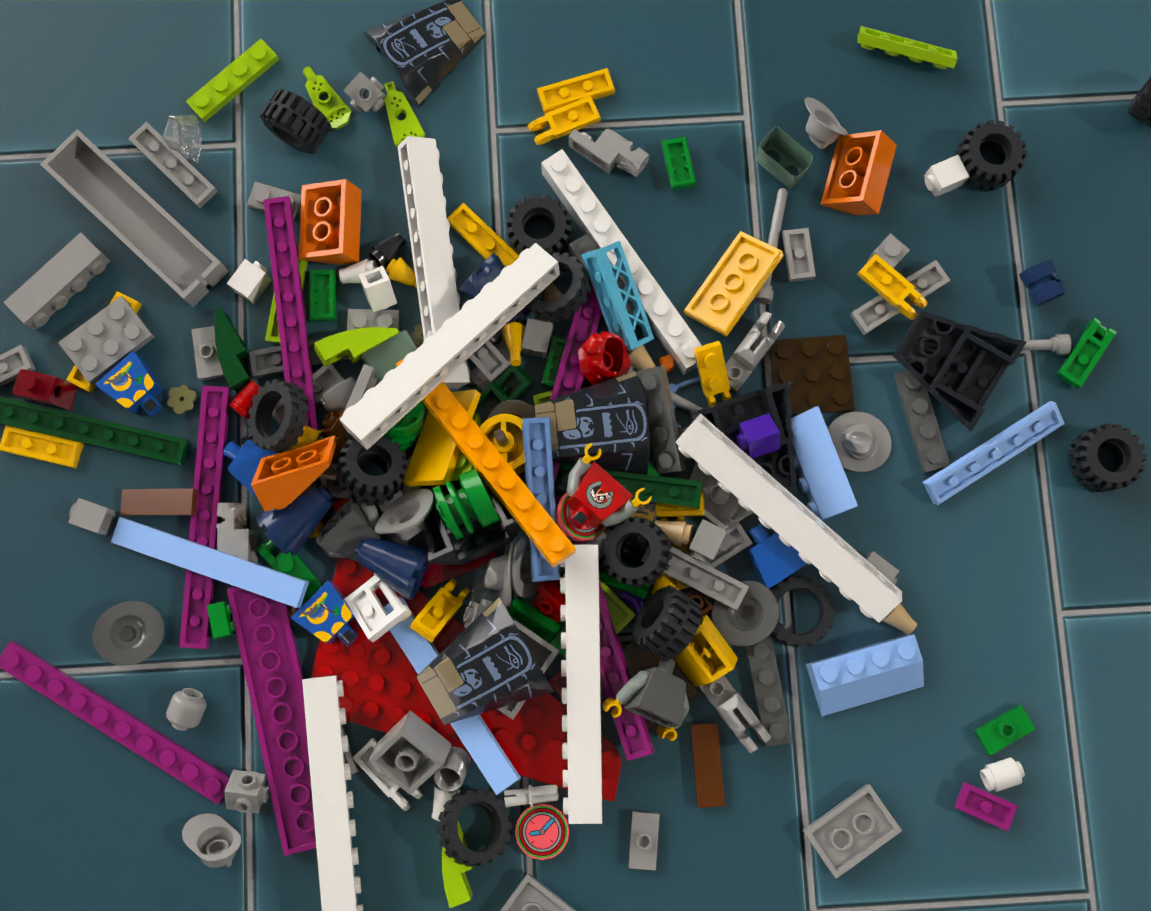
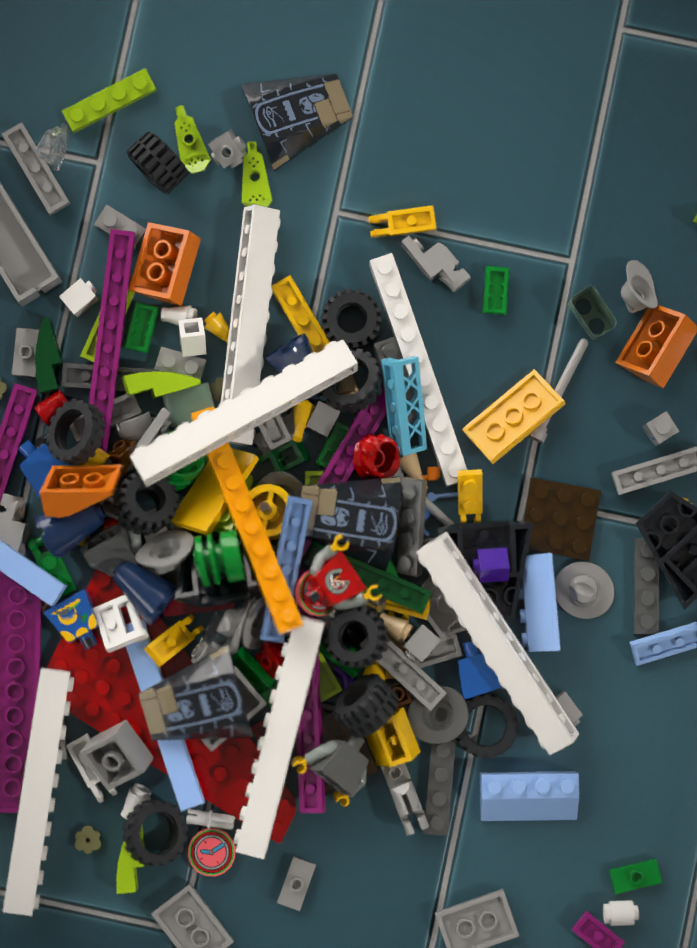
camera: 15 degrees right, 5 degrees up
(387, 249) = (210, 301): black cone -> none
(397, 861) = (81, 842): none -> olive plant
(454, 770) = (149, 782): light grey piece -> none
(594, 84) = (421, 195): yellow tile -> none
(707, 765) = (369, 835): reddish brown tile -> none
(751, 351) = (510, 484): light grey plate -> none
(798, 254) = (580, 405): light grey plate -> none
(891, 286) = (653, 458): yellow hinge -> none
(901, 620) = (572, 755): tan cone -> none

